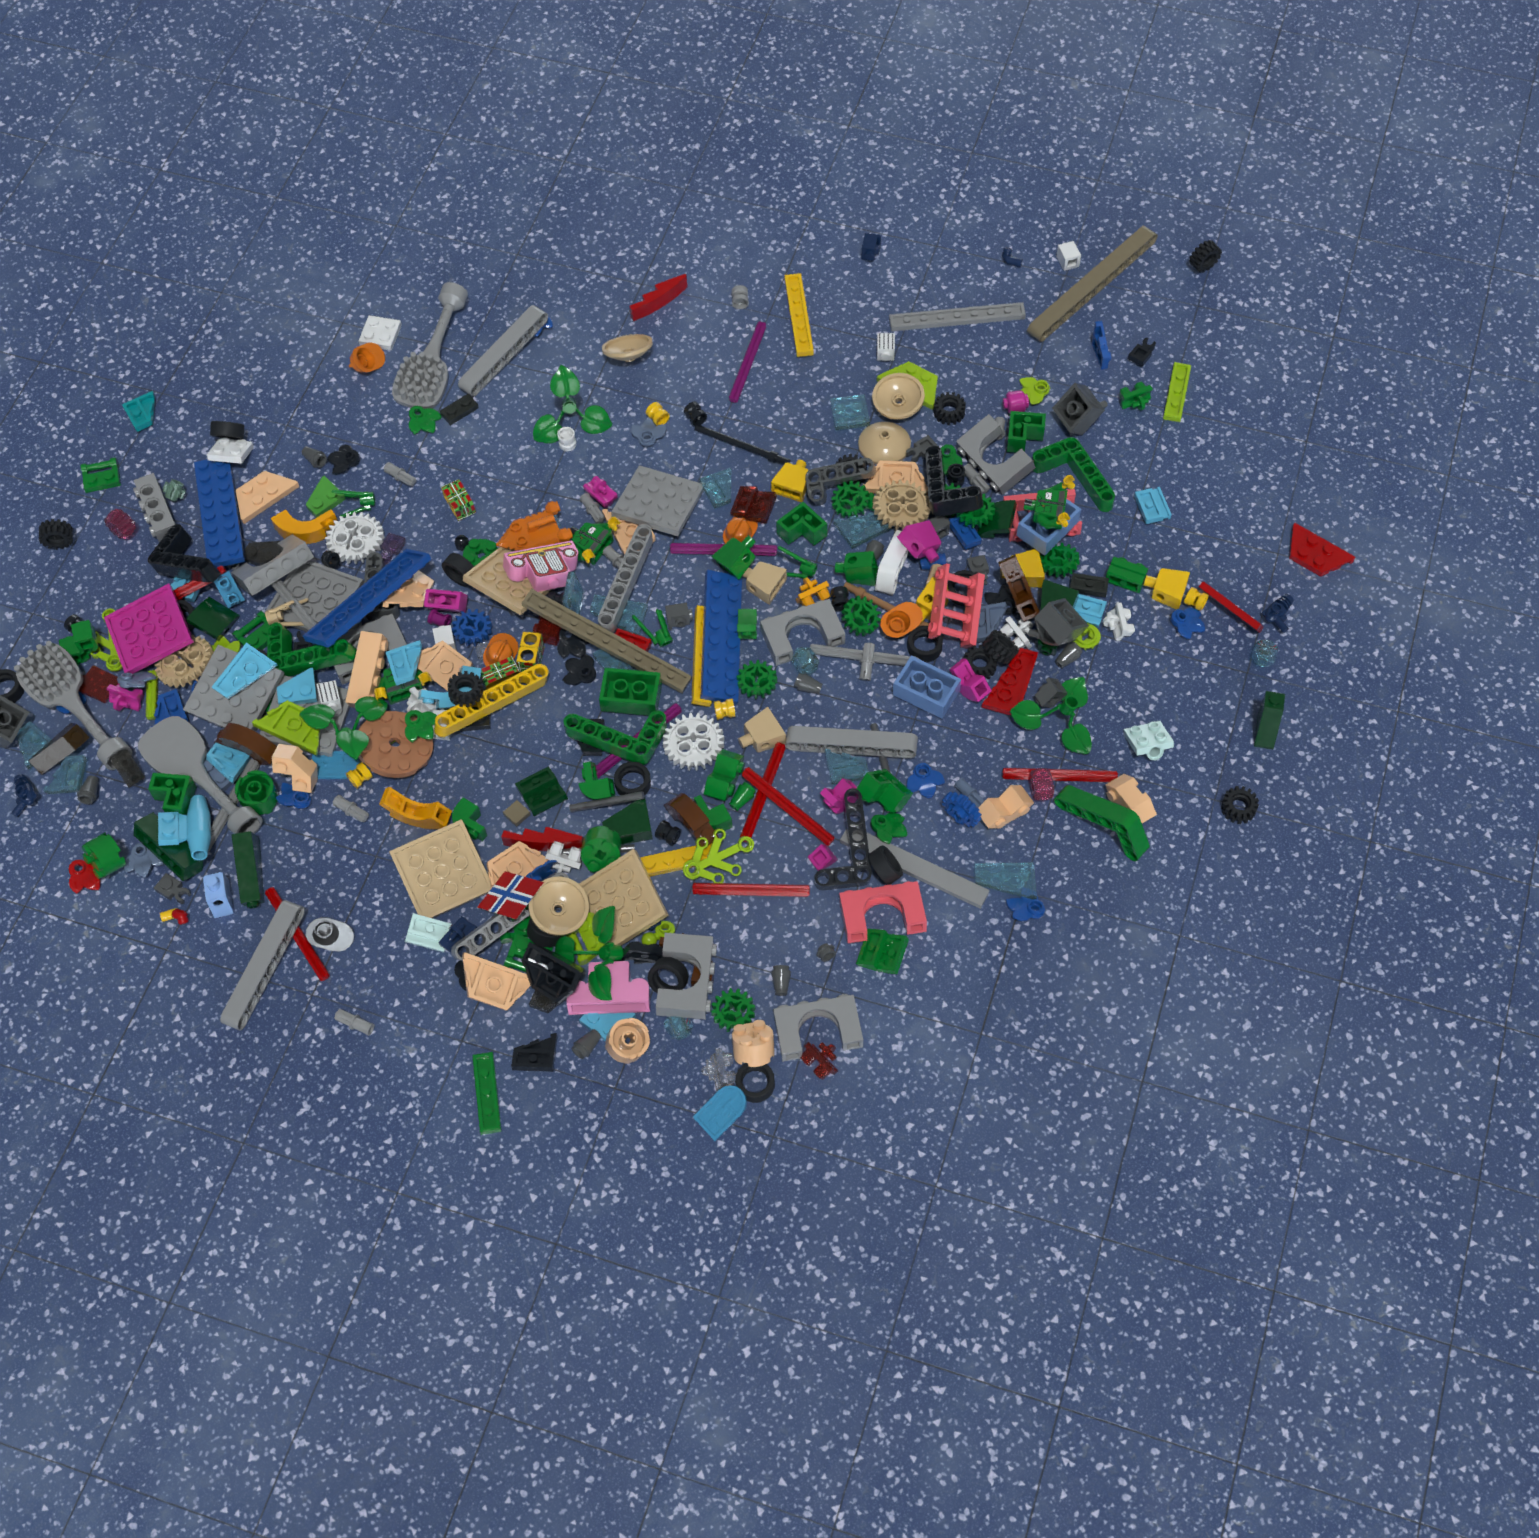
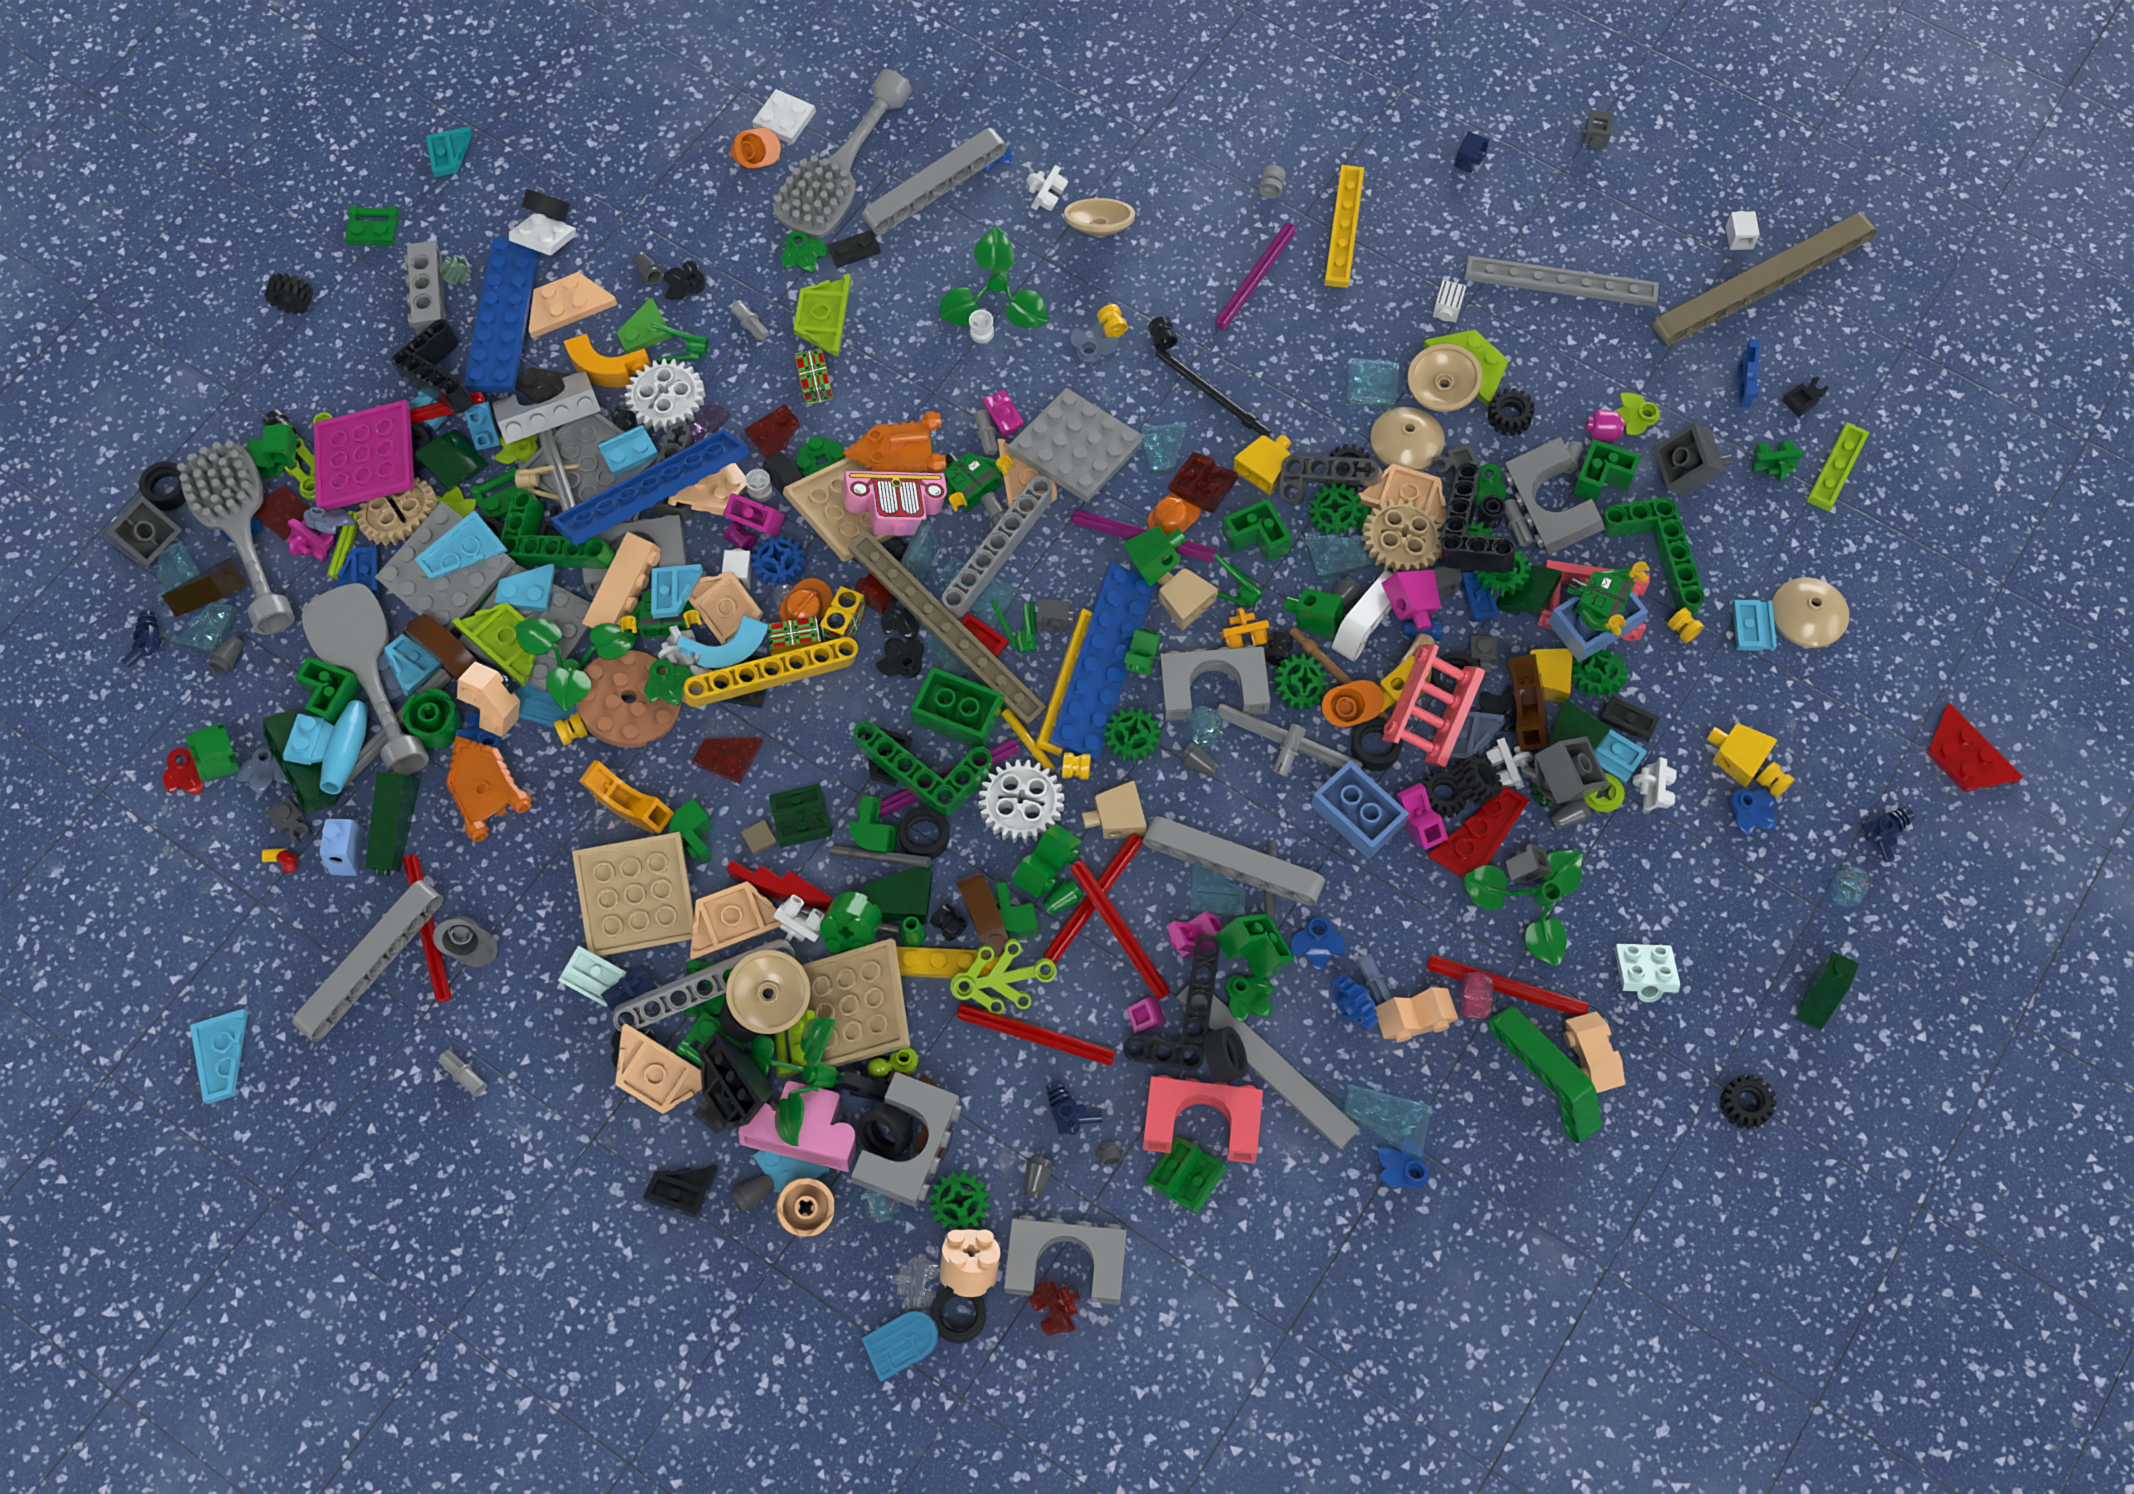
camera: 15 degrees right, 5 degrees up
(120, 523) = (373, 300): clear pink gear -> none
(127, 768) = (281, 639): clear smoke hips -> none
(172, 1056) = (218, 1054): none -> medium azure wing
(260, 599) = (517, 450): none -> lime plate
(307, 828) = (482, 786): none -> orange shield
(329, 695) = (563, 609): white brick -> none
(341, 580) = (628, 451): none -> medium azure plate
(350, 808) = (546, 772): light grey axle -> none
(440, 543) = (773, 431): none -> clear red wing
(442, 580) = (759, 485): none -> white wheel
(450, 457) = (823, 313): none -> lime wing
(461, 542) = (799, 437): black hinge -> none
(465, 697) = (736, 663): black tyre -> none
(477, 766) = (728, 756): none -> clear red wing
(486, 1093) = (602, 1223): green tile -> none
(510, 895) = (710, 958): sticker -> none
(542, 871) = (759, 936): blue plate -> none
(580, 335) = (1044, 197): none -> white hips
(645, 845) = (912, 932): none -> green cone
(663, 294) = (1158, 158): red slope -> none
(684, 701) = (1028, 741): none -> yellow bar
(787, 932) = (1066, 1111): none -> dark blue piece
(952, 216) = (1598, 134): none -> dark grey brick
(1009, 259) = (1658, 214): dark blue arm -> none
(1107, 516) = (1685, 625): none -> yellow wheel
(1127, 574) = (1687, 717): green brick -> none
(1187, 495) = (1801, 620): none -> tan dish
(1205, 256) = (1936, 278): black tyre -> none
(1231, 606) = (1822, 805): red tile -> none

